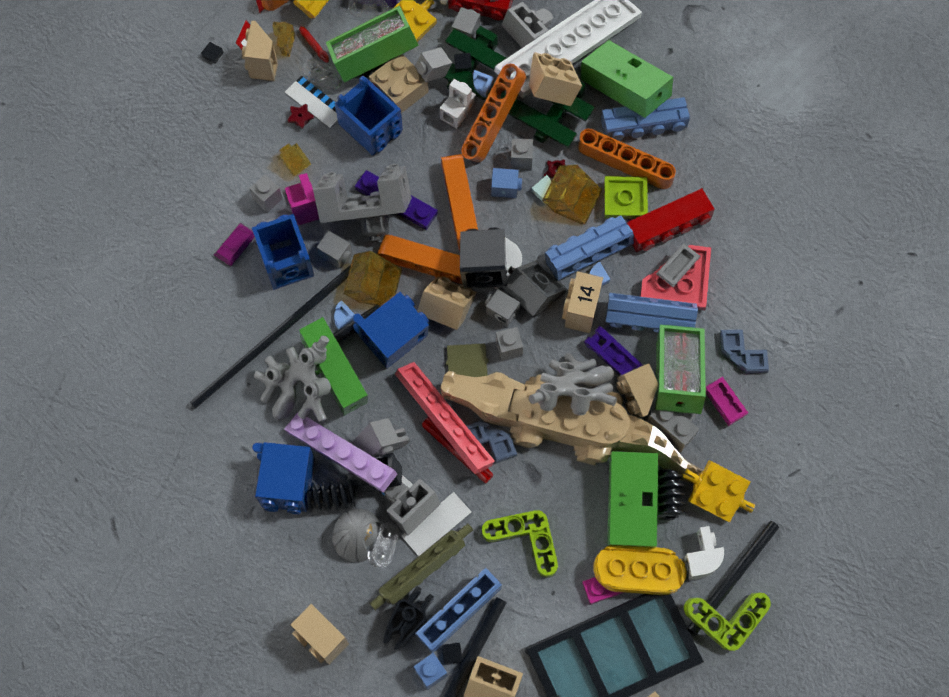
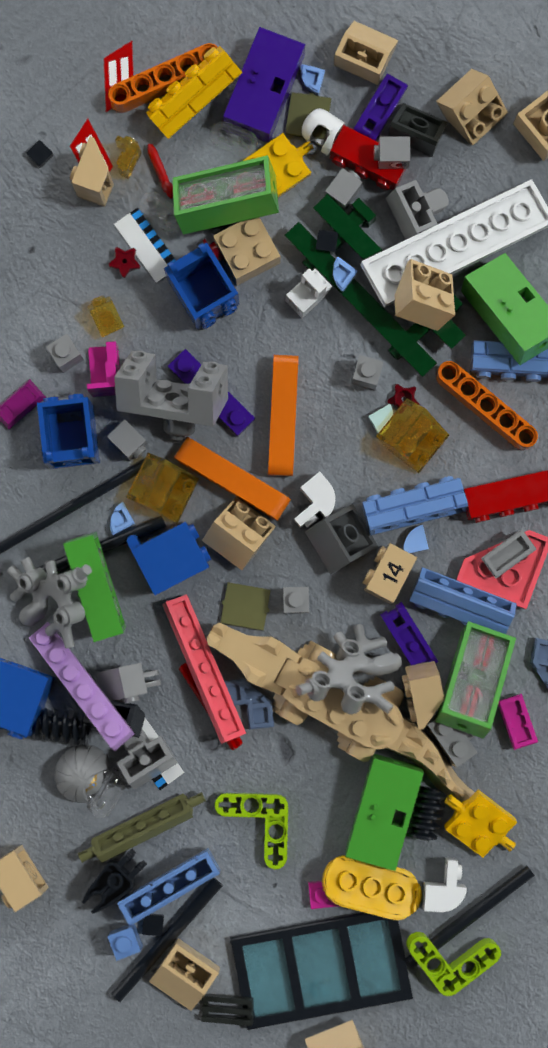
camera: 15 degrees right, 15 degrees up
(433, 64) = (290, 240): light grey brick -> none
(437, 524) = (178, 778): white sticker -> none
(483, 258) = (289, 497): black slope -> none
(502, 108) = (355, 315): orange beam -> none
(502, 307) = (298, 554): light grey brick -> none
(505, 183) = (340, 403): medium blue brick -> none
(625, 197) = (473, 453): lime plate -> none

